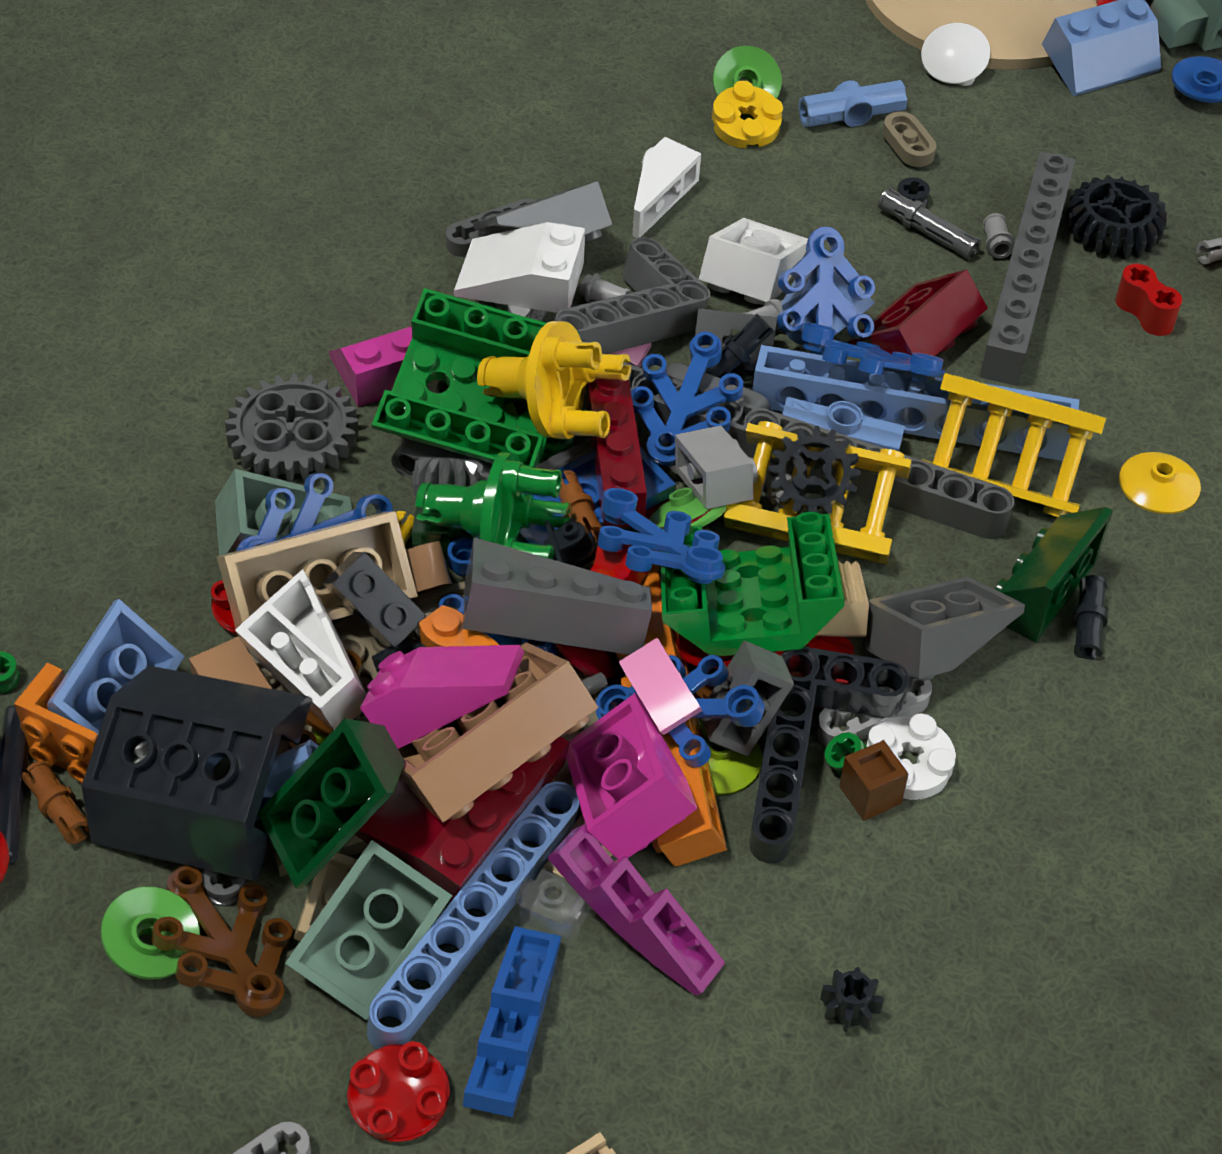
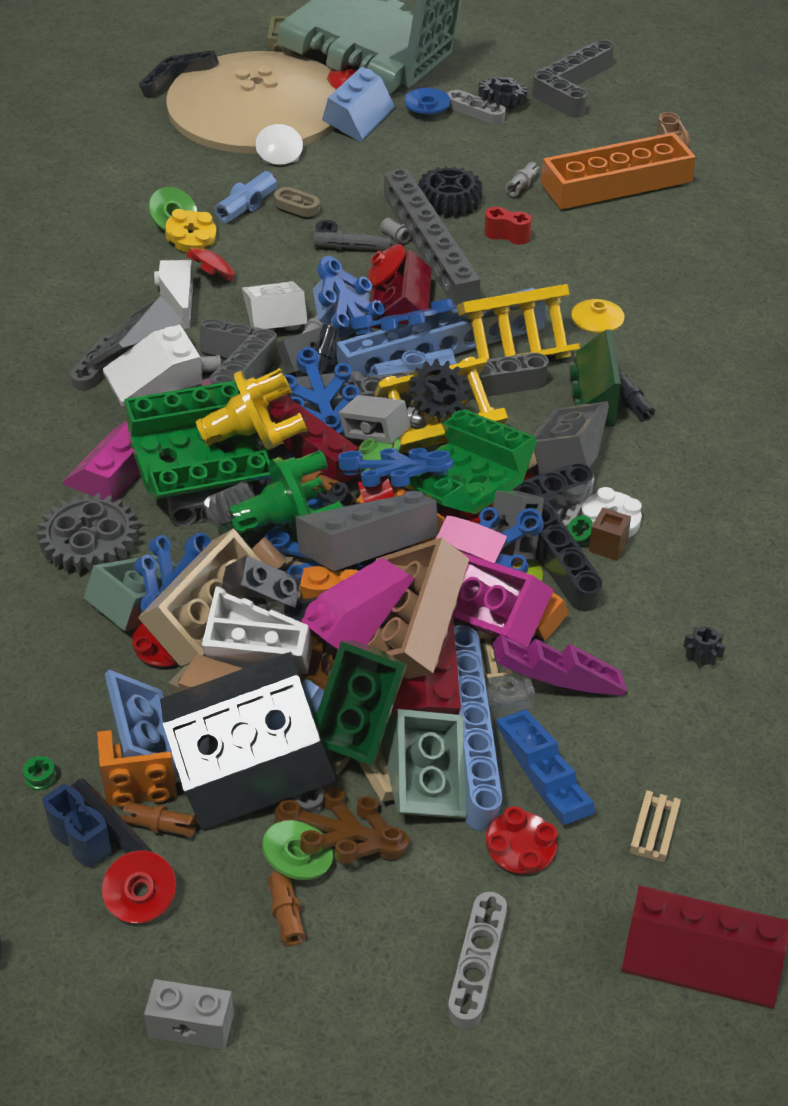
camera: 35 degrees left, 5 degrees down
(81, 993) = (286, 909): none -> dark orange pin
(728, 169) = (211, 262): none -> red dish
(931, 273) = (385, 264): none -> red dish

